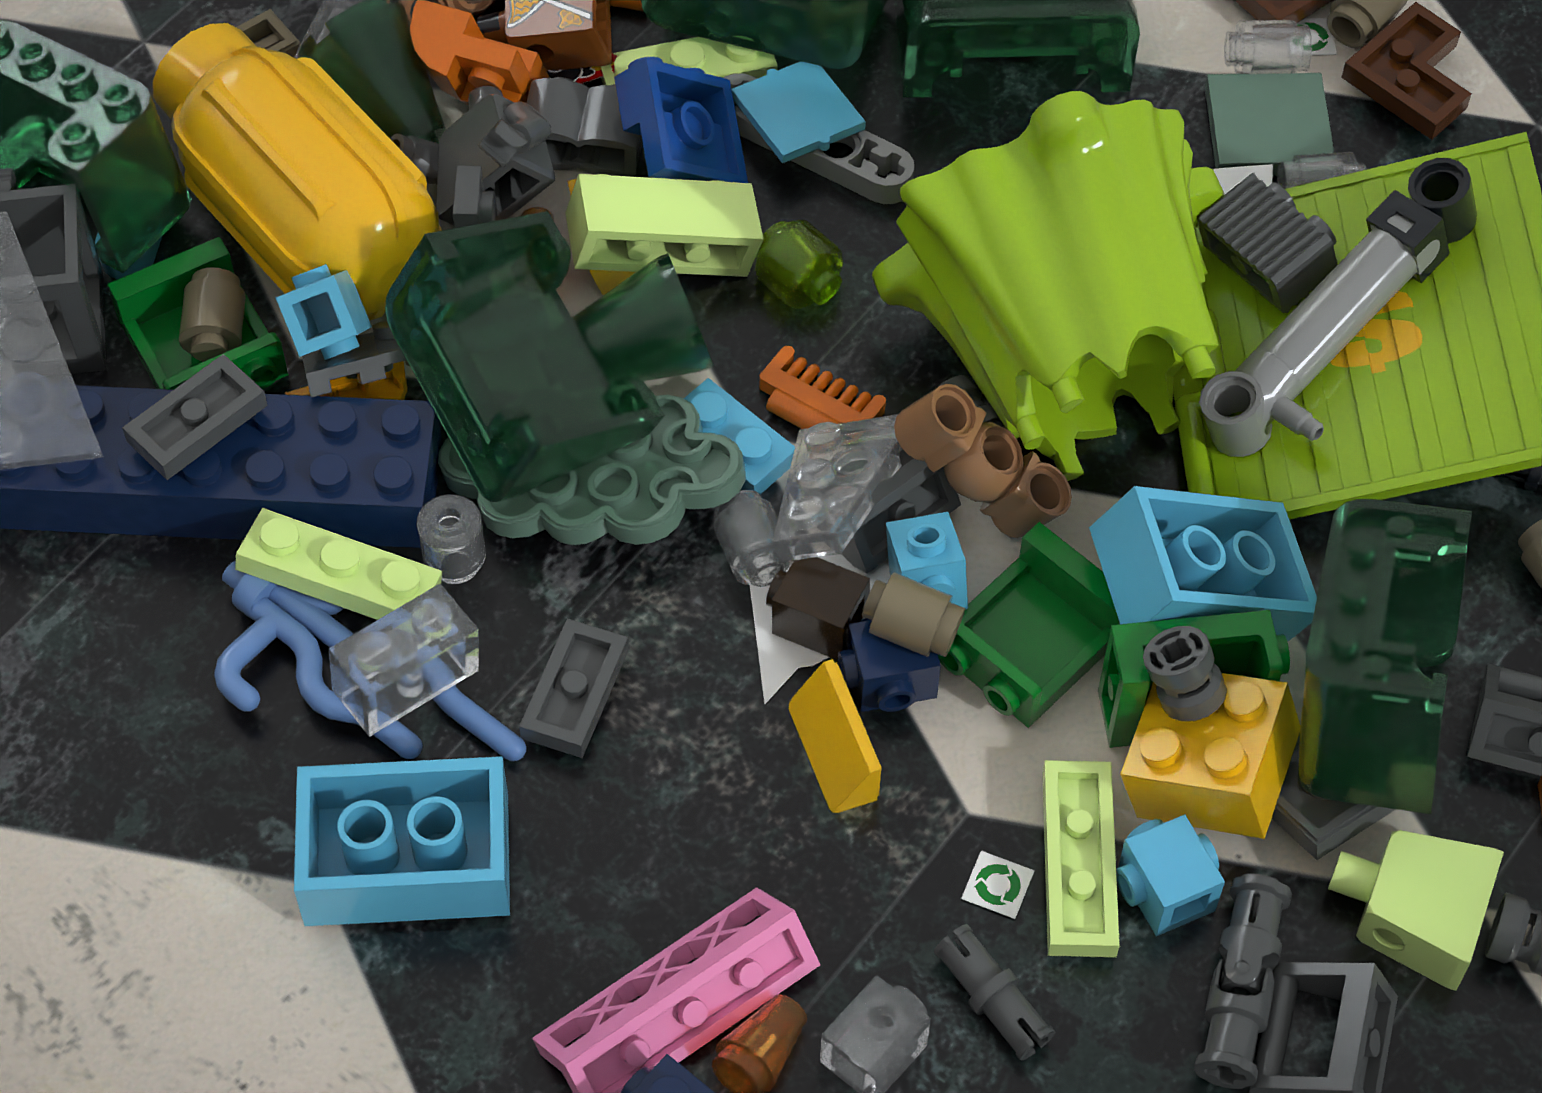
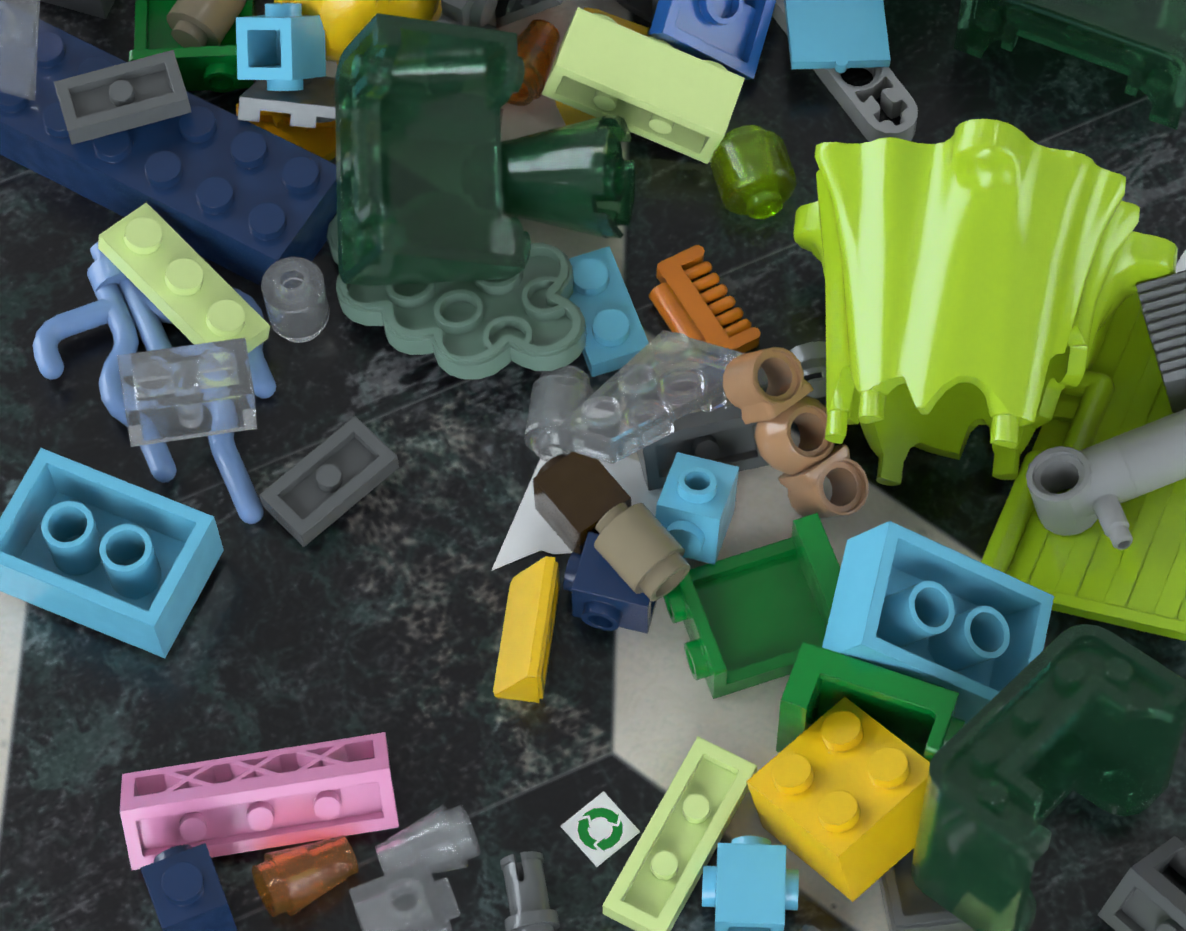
camera: 30 degrees right, 5 degrees up
(865, 952) = (440, 837): none -> clear cone
(1185, 673) = (843, 716): dark grey wheel -> none

